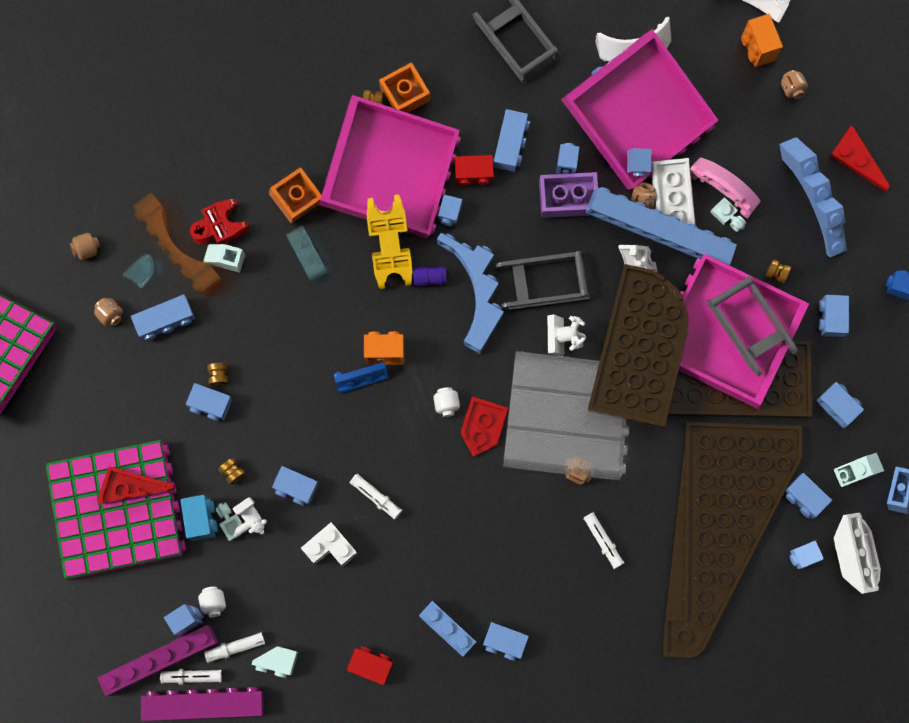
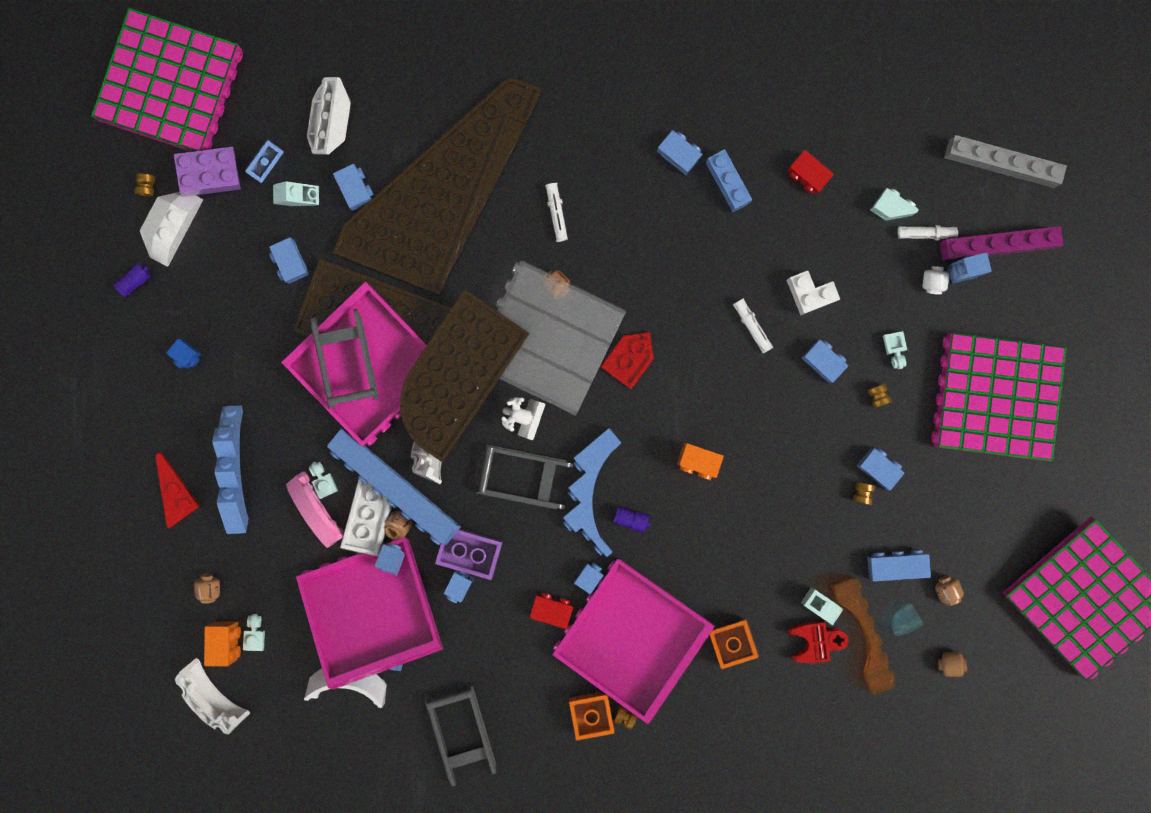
camera: 165 degrees left, 10 degrees up
(126, 485) = (984, 413): red wing -> none
(167, 676) = (975, 220): white pin -> none
(198, 518) = (925, 360): dark azure brick -> none
(202, 705) = (973, 190): magenta brick -> none
(251, 518) = (875, 342): white piece -> none
(306, 253) = (741, 583): clear light blue beam -> none
(361, 377) = (730, 442): blue hinge -> none
(387, 226) = (658, 578): yellow piece -> none
(446, 402) = (657, 391): white head -> none
(511, 140) = (504, 628): medium blue brick -> none
(735, 57) = (254, 638): none -> light aqua plate
(774, 268) = (296, 408): pearl gold wheel -> none
(806, 555) = (376, 134): light blue brick -> none
(834, 315) = (260, 346): medium blue brick -> none

